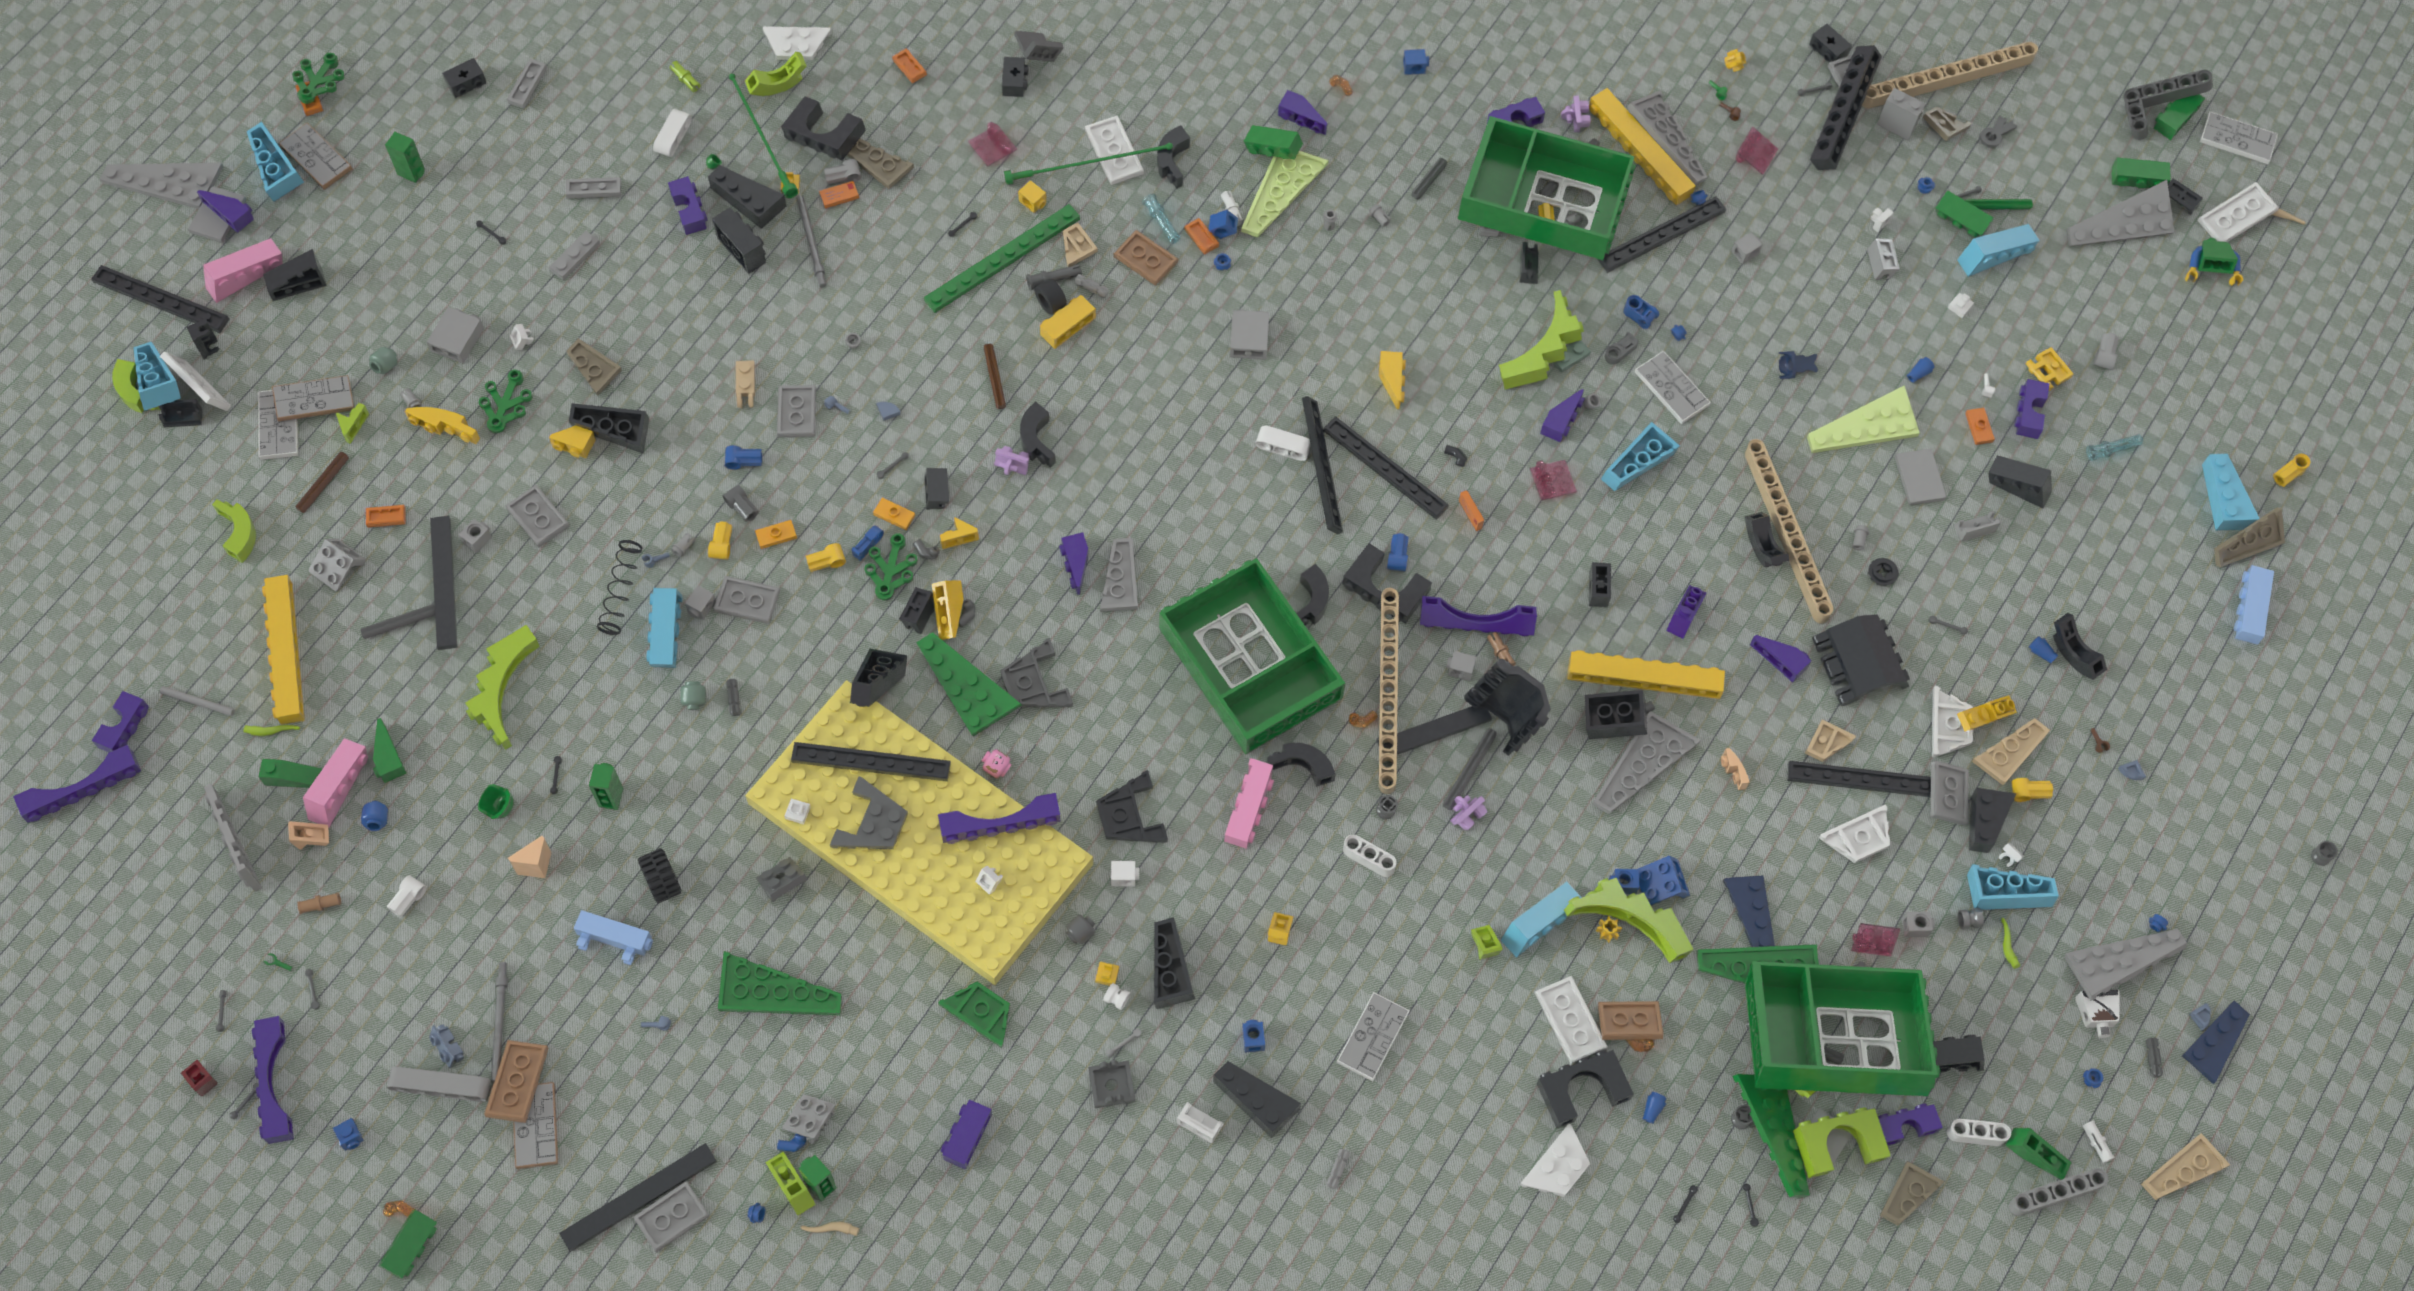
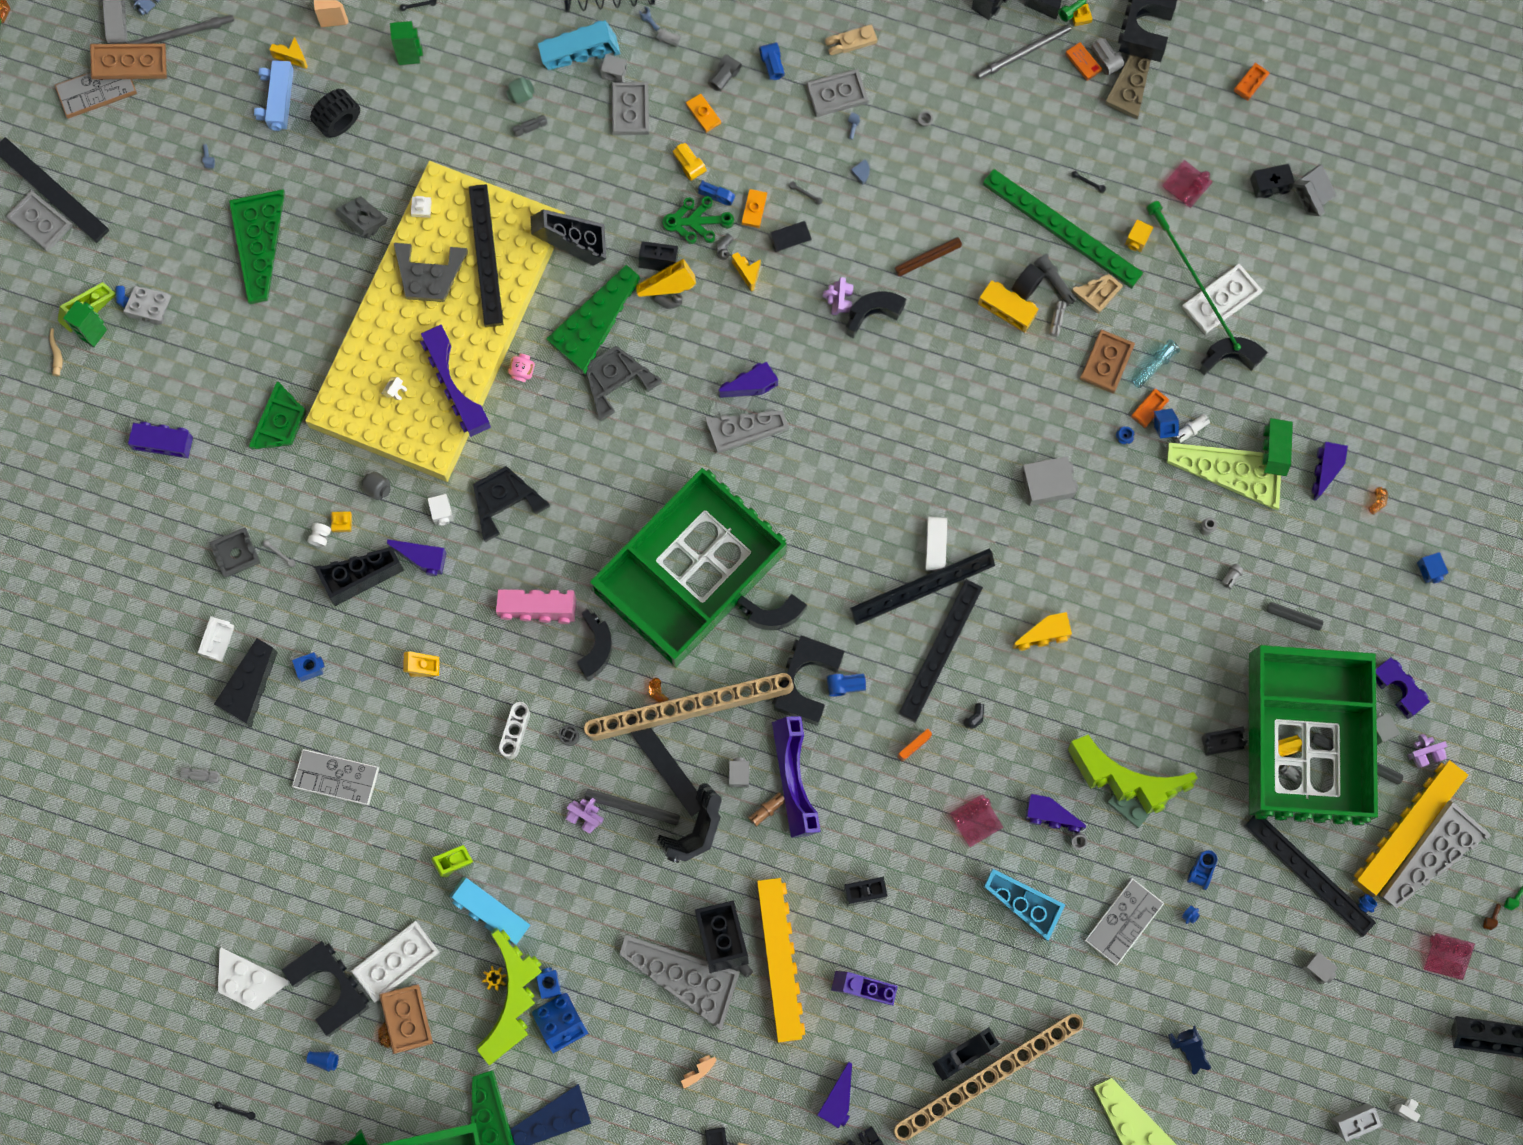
camera: 75 degrees right, 10 degrees up
(572, 907) = (292, 54): none -> yellow slope
(720, 545) = (676, 68): yellow piece -> none
(756, 1213) = (54, 287): blue plate -> none
(1169, 901) = (425, 557): none -> dark purple slope
(1622, 348) = (1154, 860): dark grey piece -> none

